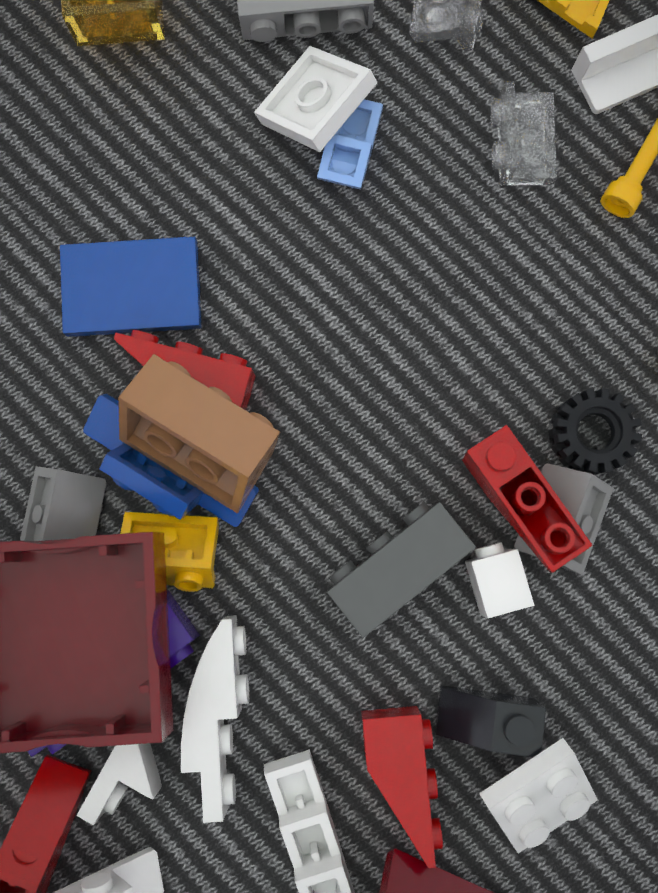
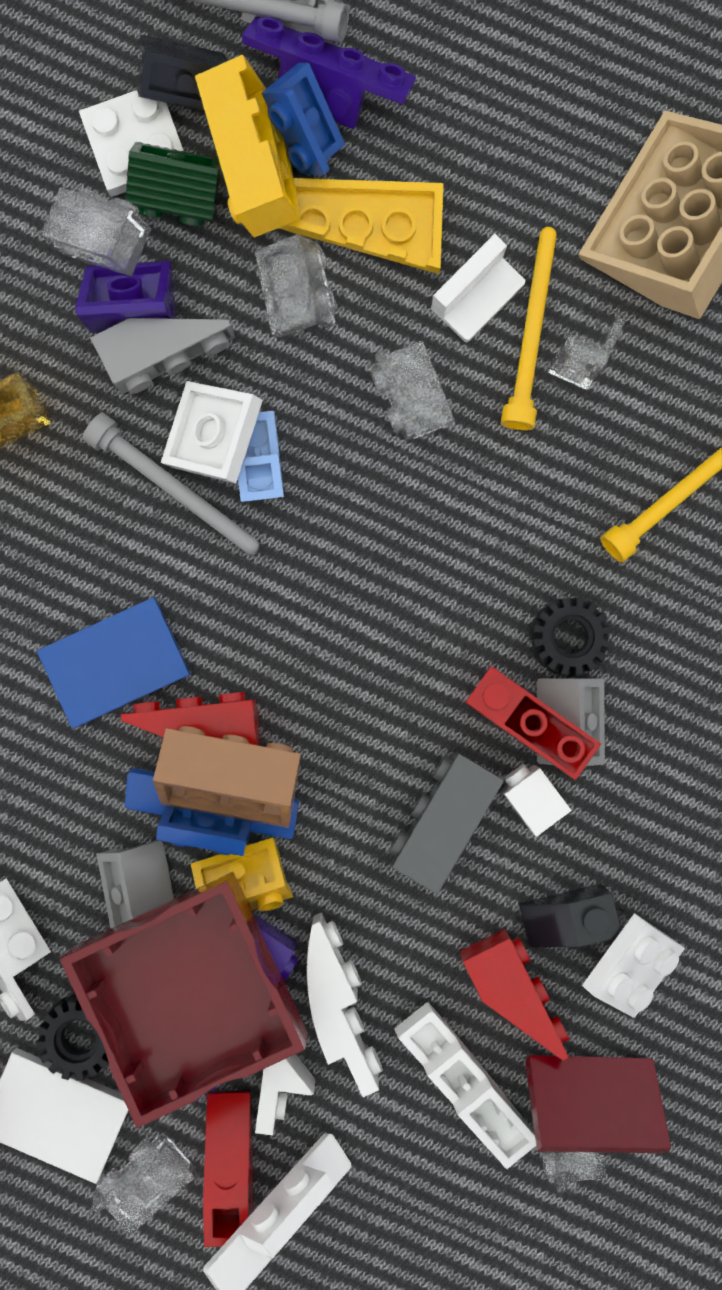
camera: 20 degrees left, 5 degrees up
(210, 67) = (104, 435): none -> light grey piece

